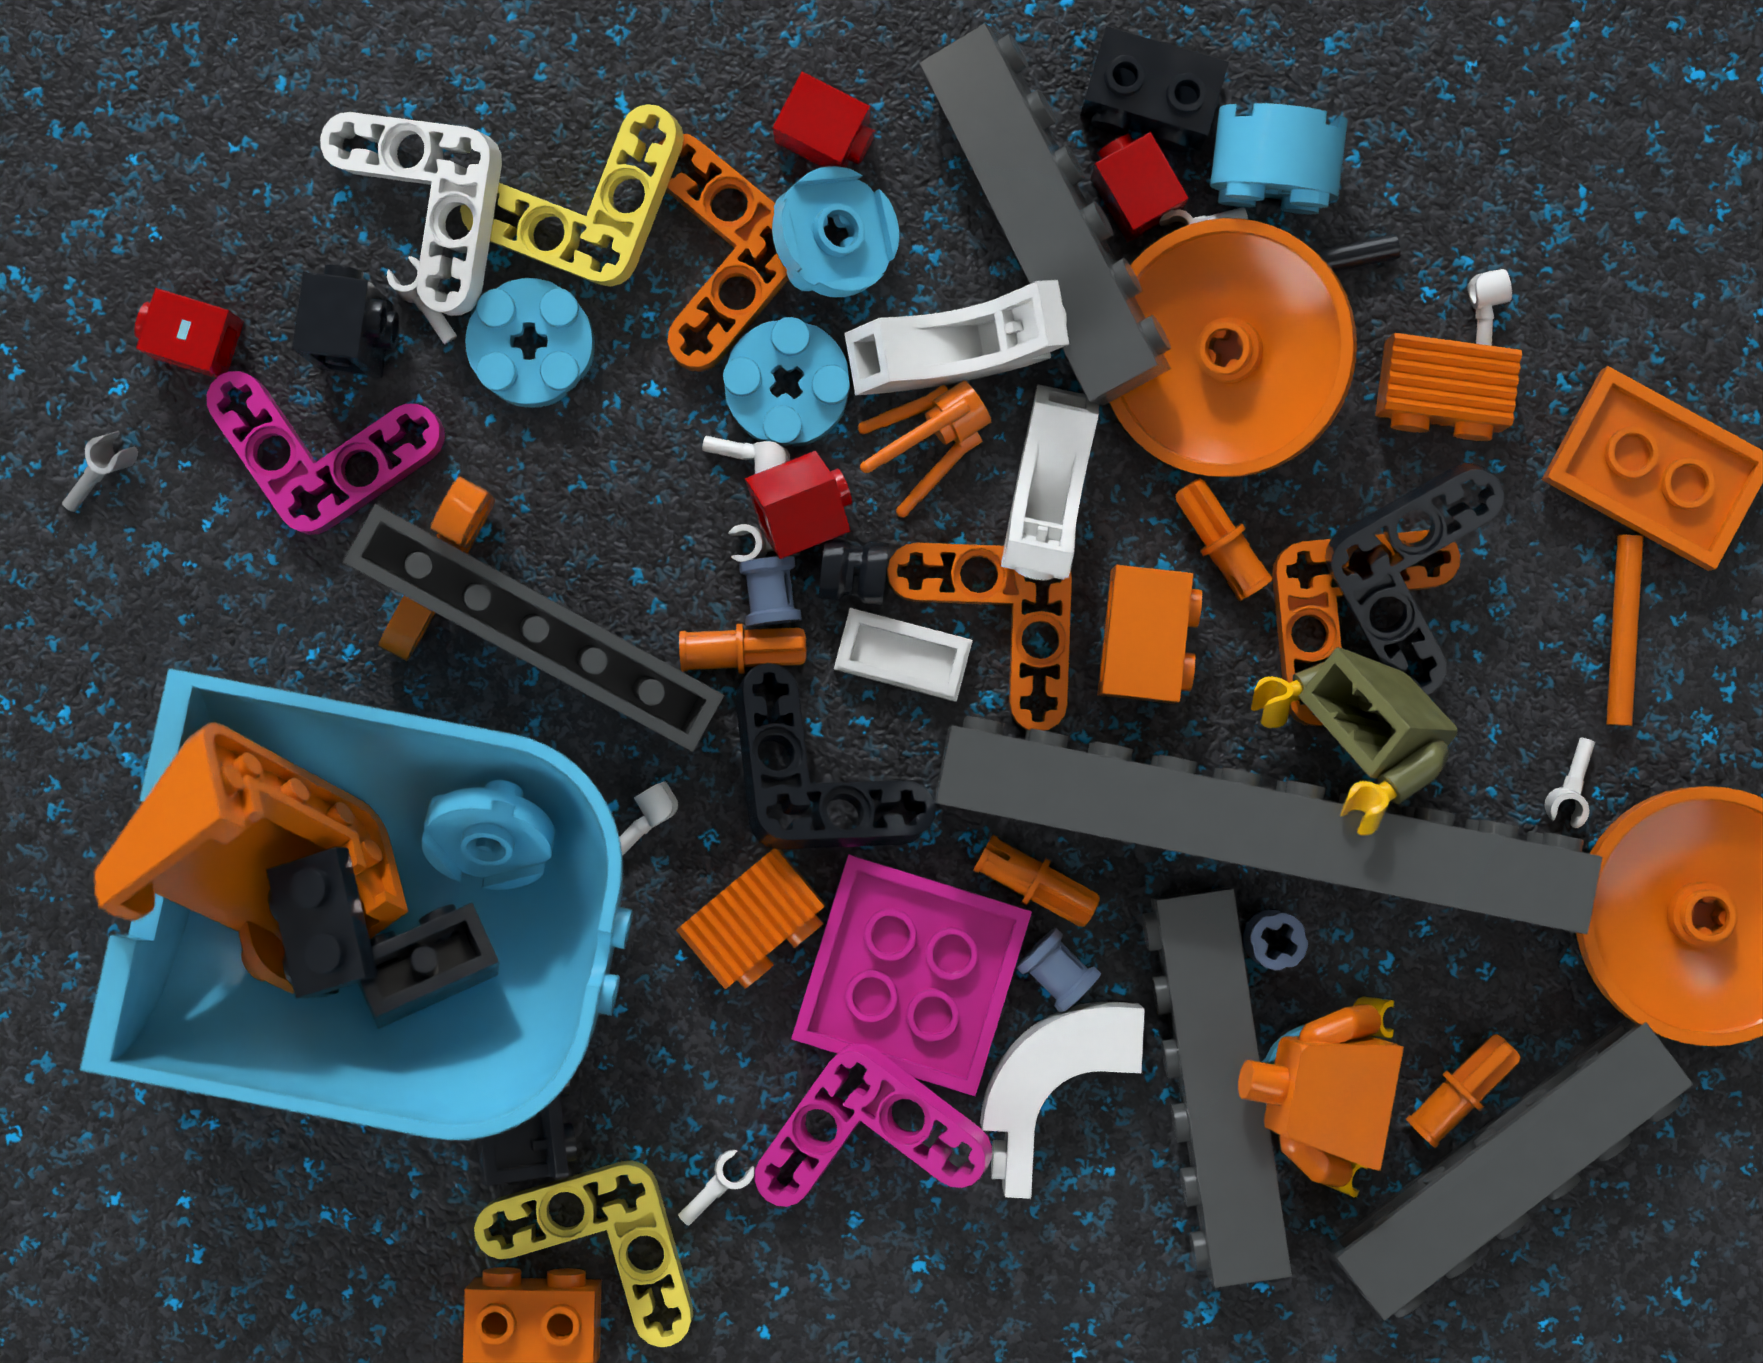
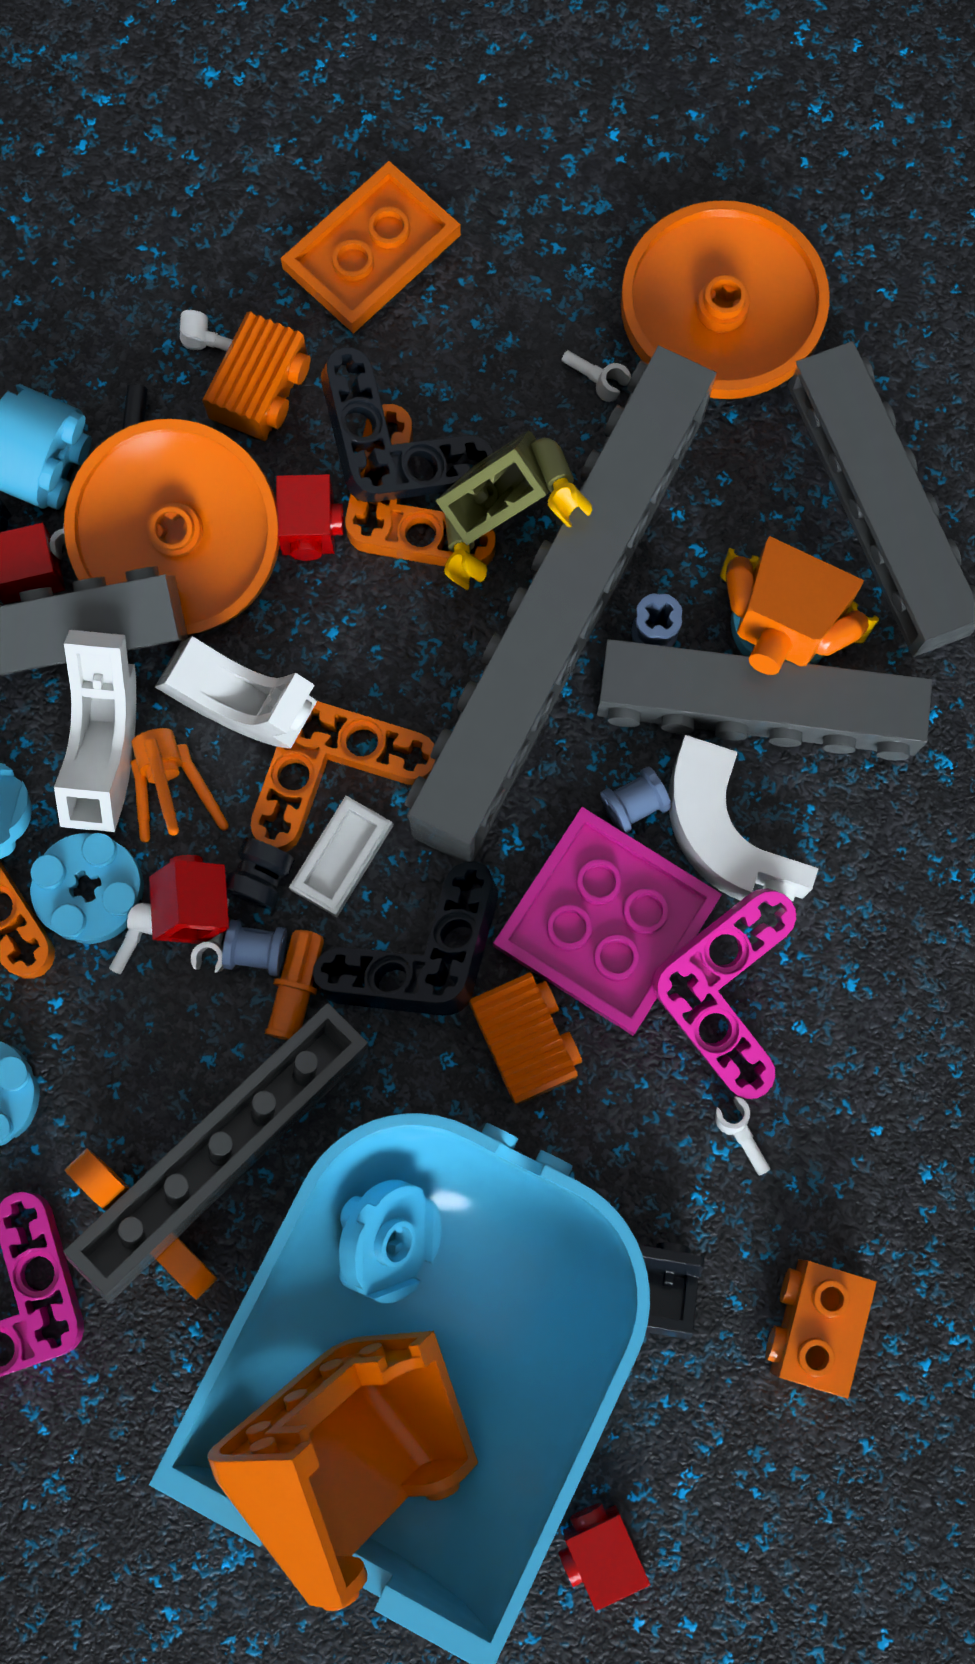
camera: 75 degrees left, 10 degrees down
(237, 1148) = (602, 1556): none -> red brick
(321, 923) = (421, 1411): black bracket -> none
(428, 963) = (484, 1332): black brick -> none
(622, 1226) = (758, 1225): light yellow beam -> none
(657, 806) = (406, 1095): white hand -> none
(1037, 882) = (558, 798): orange axle -> none
(1148, 634) = (382, 652): orange brick -> none
(1223, 540) = (324, 578): orange axle -> none
(1290, 497) = (307, 516): none -> red brick
(1464, 1089) = (813, 515): orange axle -> none
(1624, 630) = (488, 305): orange bar -> none

